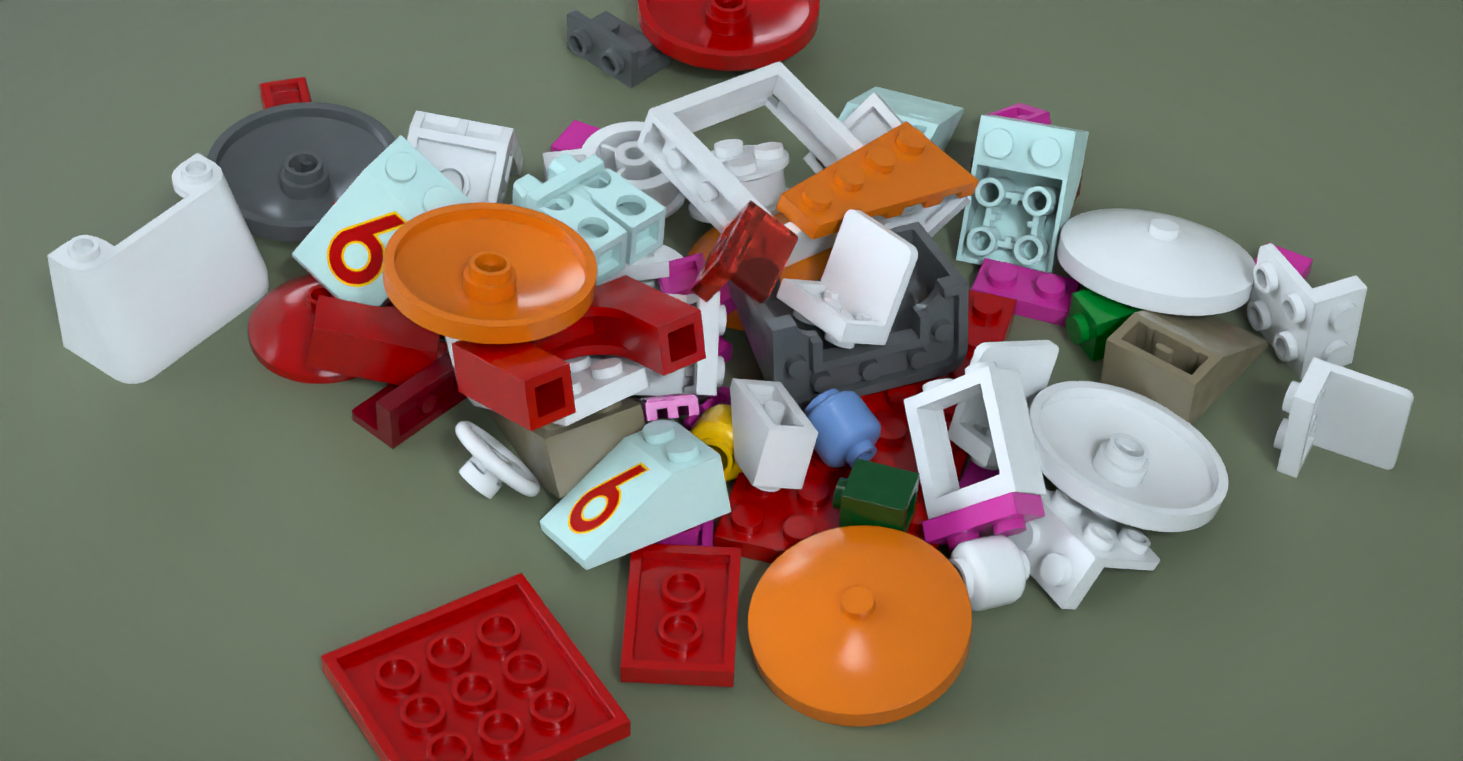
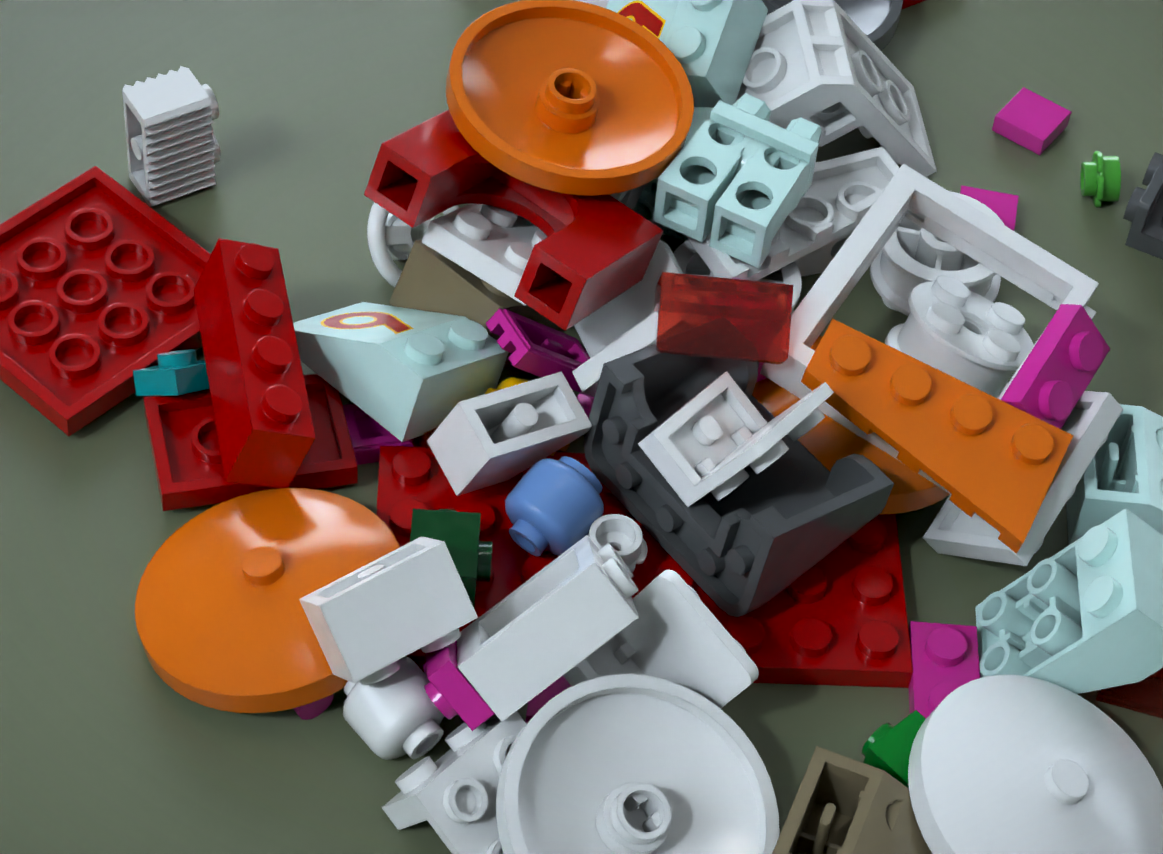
camera: 70 degrees right, 5 degrees up
(326, 586) = (170, 135): none -> white brick
(488, 93) = (1031, 121): none -> dark pink tile
(572, 72) = (1101, 178): none -> bright green plate
(607, 639) = (174, 375): none -> teal plate
(640, 567) = (253, 365): none -> red brick
(834, 96) = (1058, 366): none -> dark pink plate
(886, 406) = (622, 535): none -> white plate
(952, 517) = (389, 611): none -> white brick

